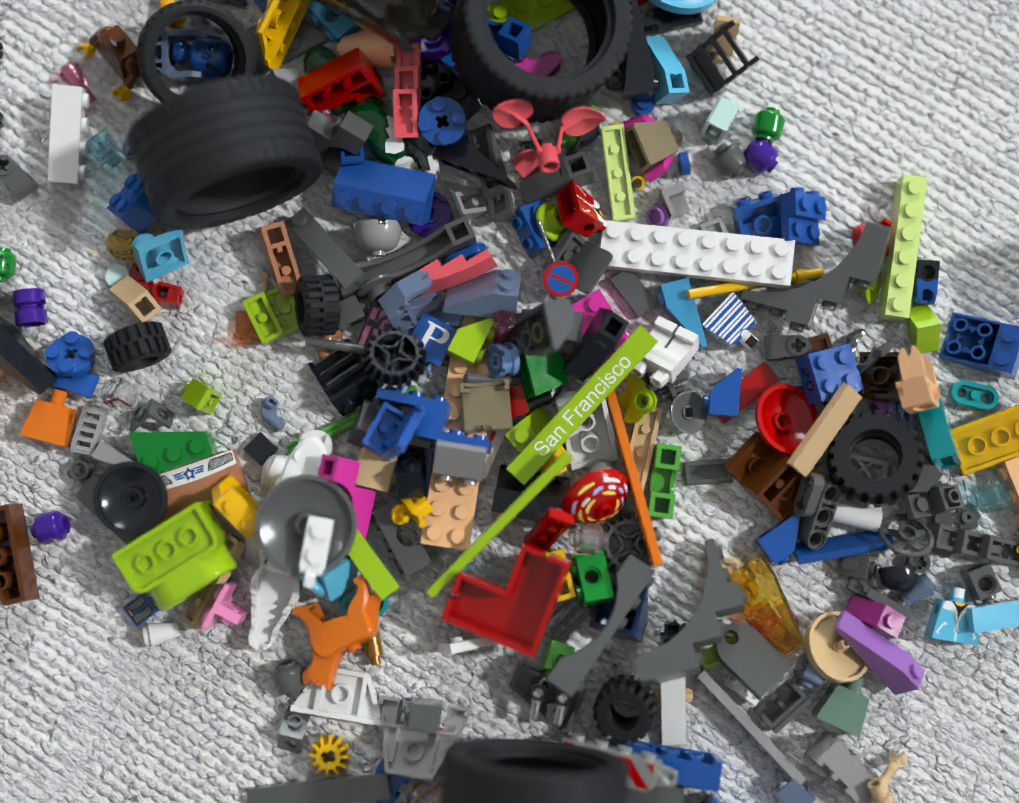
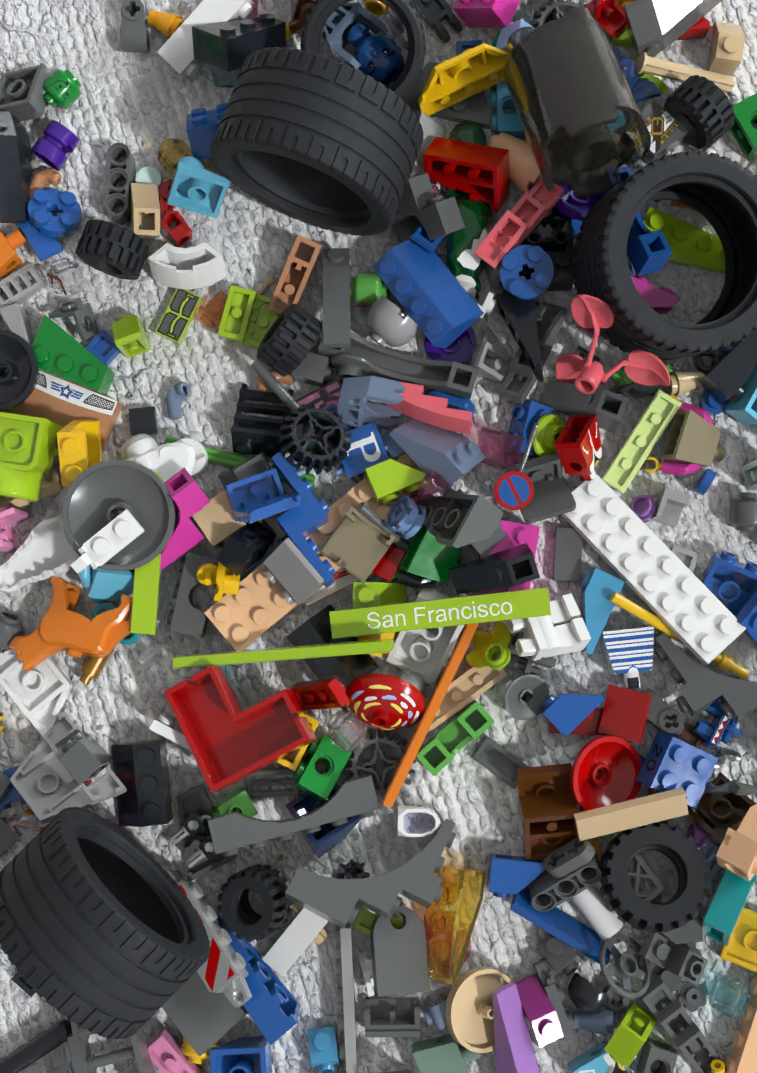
camera: 50 degrees right, 0 degrees up
(34, 155) = (164, 22): none -> light orange cone
(40, 338) = (43, 178): none -> nougat arm
(92, 288) = (117, 172): none -> dark grey beam
(102, 126) = (231, 42): none -> black wedge
(188, 420) = (103, 347): none -> blue tile
(200, 314) = (187, 267): none -> white brick
(222, 354) = (178, 315): none -> tile
(340, 224) = (367, 288): none -> bright green head
(472, 688) = (145, 774): none -> black slope
(526, 257) = (500, 447): none -> clear pink piece
(612, 107) = (683, 382): none -> tan cone
(686, 560) = (416, 821): none -> rock
(755, 768) = (323, 1049): none -> dark azure bracket
(763, 366) = (625, 713): none -> red piece
(831, 331) = (719, 729): none -> blue hips
(948, 578) = (630, 1035): none -> lime slope

